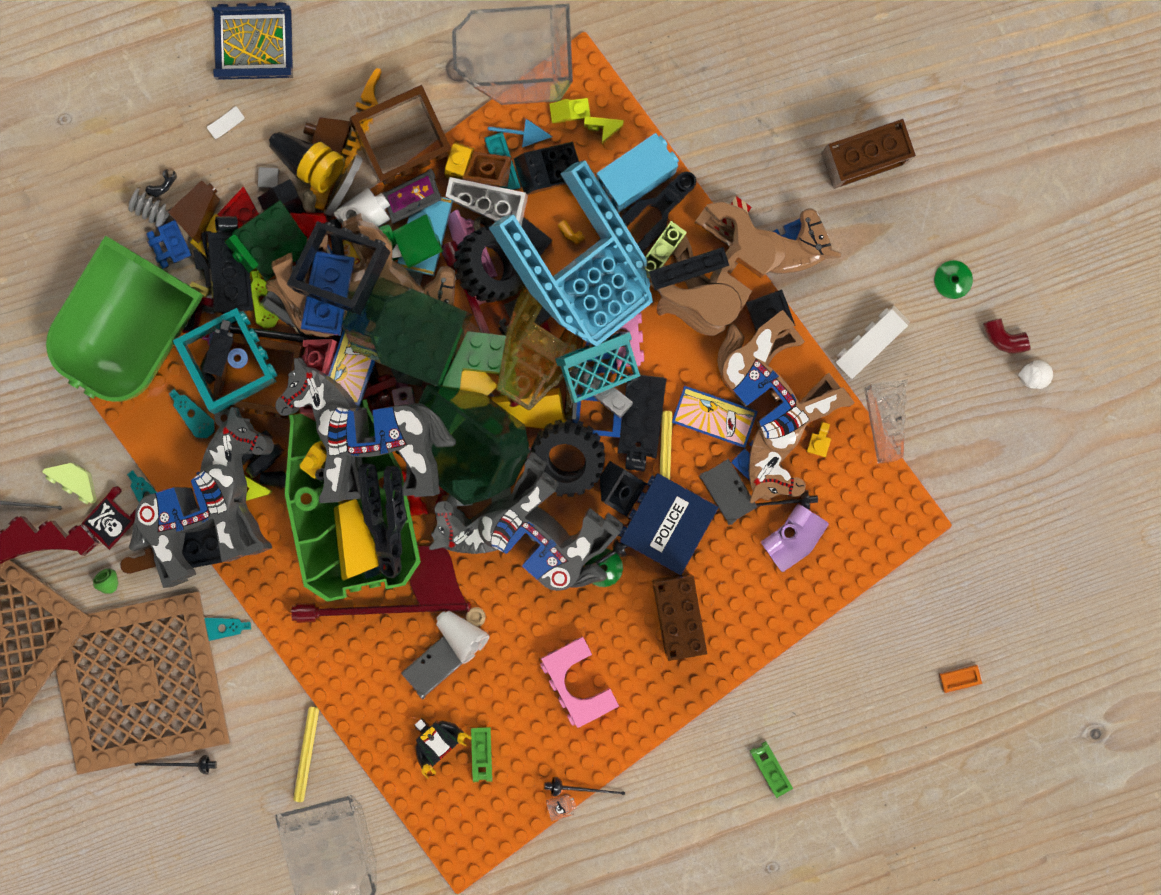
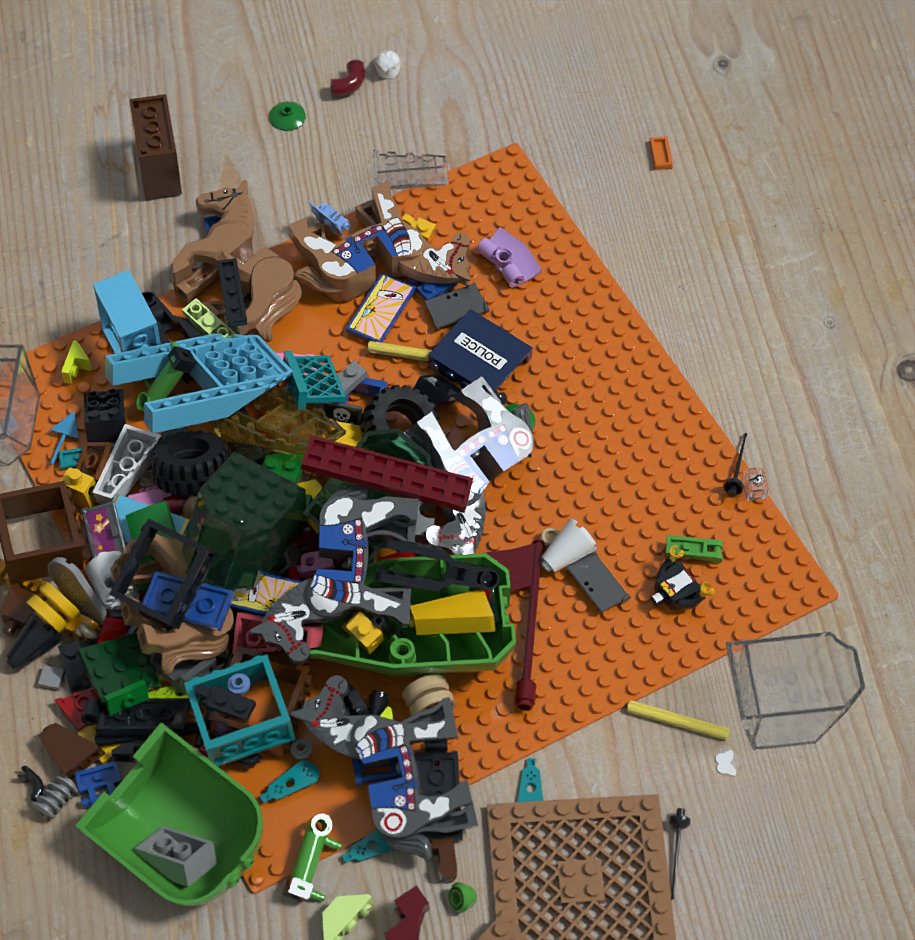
camera: 80 degrees left, 30 degrees down
(96, 437) = (299, 884): none -> bright green piece
(106, 326) = (178, 855): none -> light grey slope
(108, 520) = (389, 884): flag -> none
(273, 799) = (724, 763): none -> white sticker
(278, 528) = (426, 693): none -> tan wheel
(456, 461) = (387, 473): none -> dark red plate
(569, 110) = (51, 392): neon yellow slope -> none
(580, 710) = (610, 468): bright pink arch -> none
(590, 232) = (179, 362): none -> bright green piece
(642, 420) = (380, 364): black hinge -> none
(679, 617) = (563, 355): reddish brown window -> none
(766, 307) = (286, 250): black plate -> none
(771, 770) = (732, 307): bright green plate -> none
(804, 500) = (474, 242): black sword -> none
(813, 339) = (328, 215): none -> light blue hinge
(871, 343) = (332, 174): white wedge -> none

